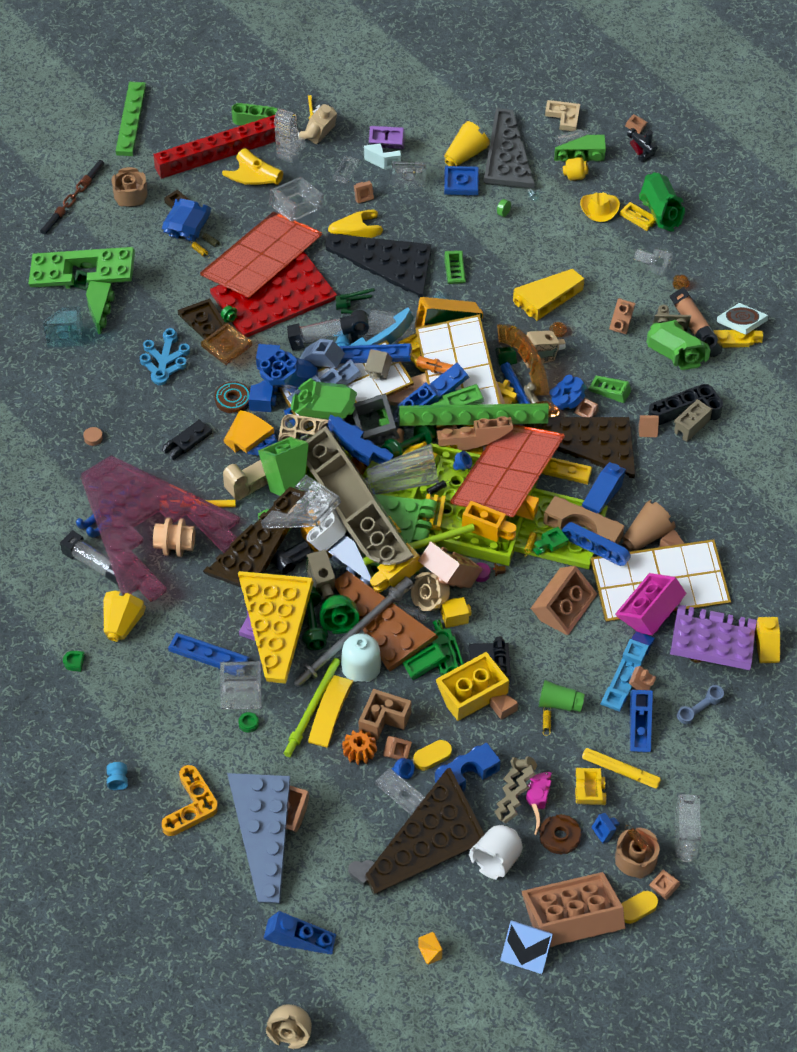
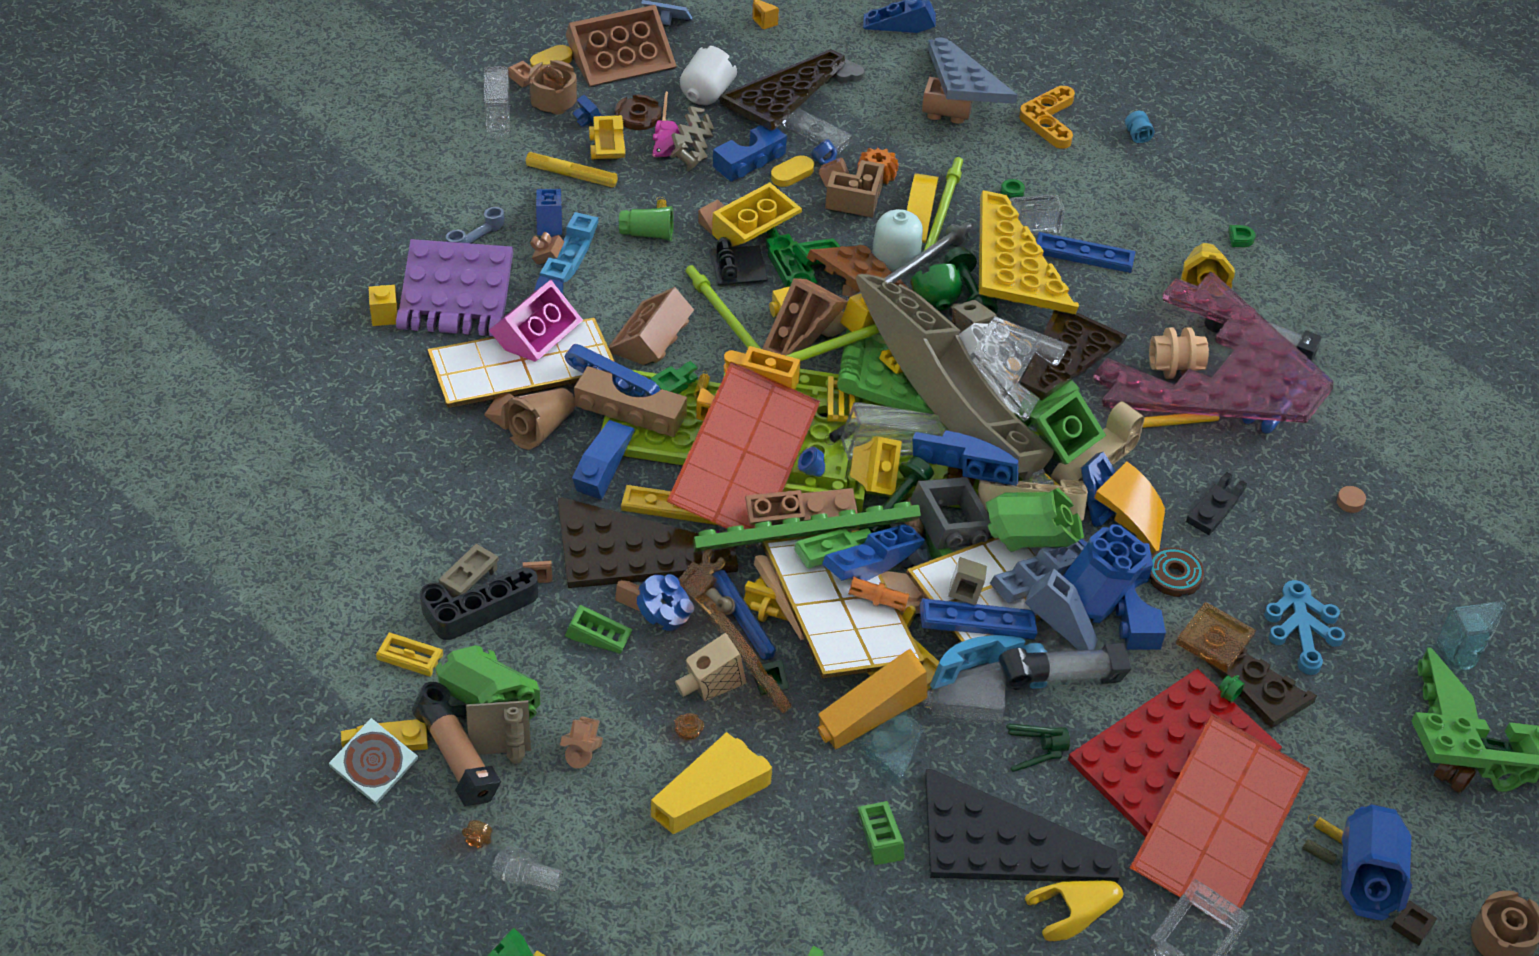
camera: 170 degrees right, 5 degrees down
(520, 641) = (702, 285): none -> lime bar
(725, 386) = (407, 658): none -> yellow tile

